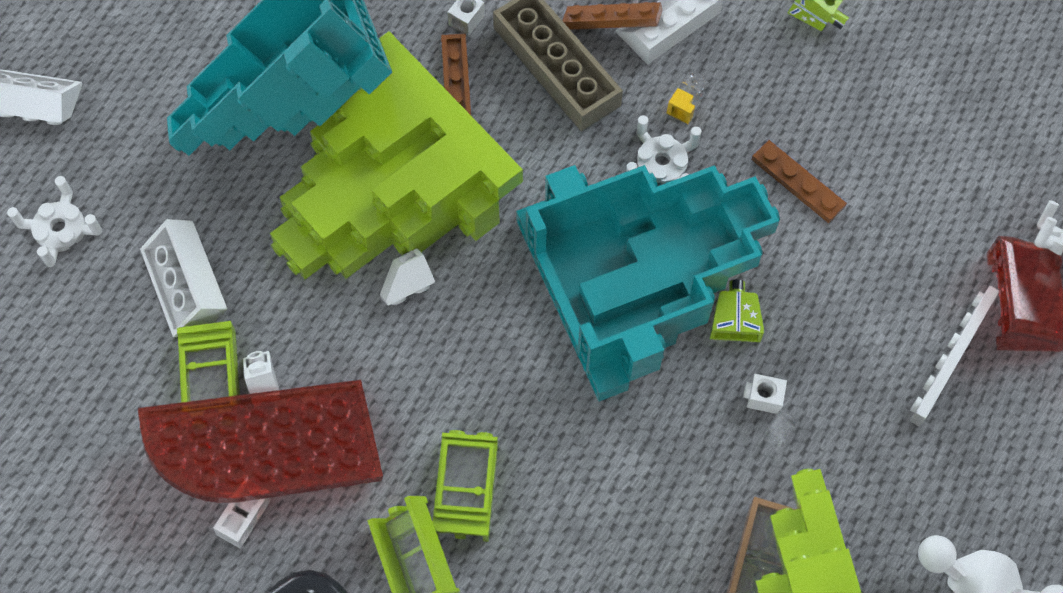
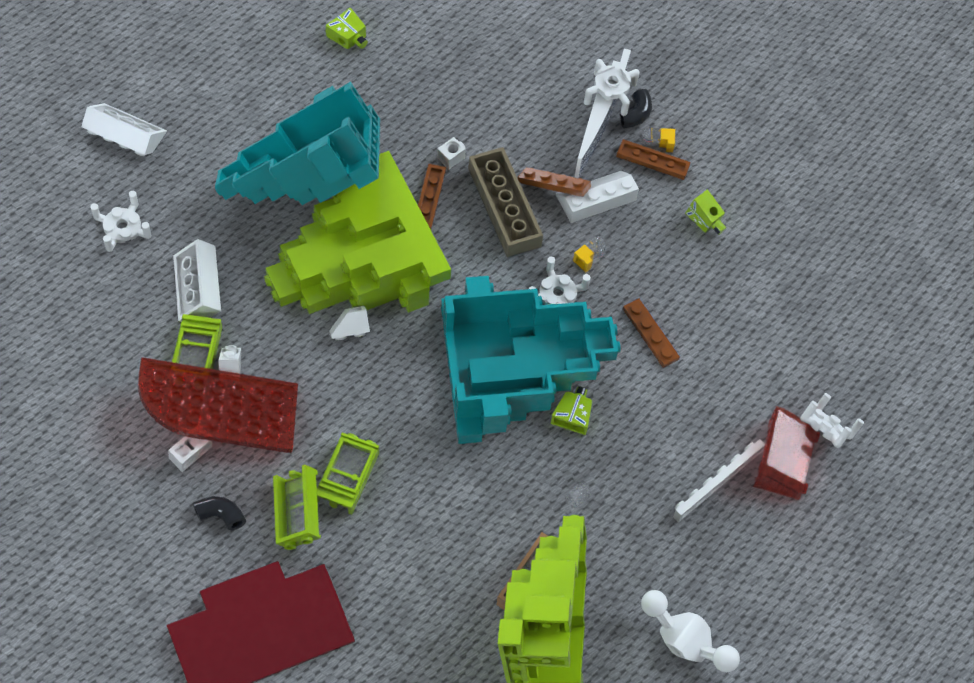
camera: 10 degrees right, 5 degrees down
(774, 386) = (575, 476): white brick -> none

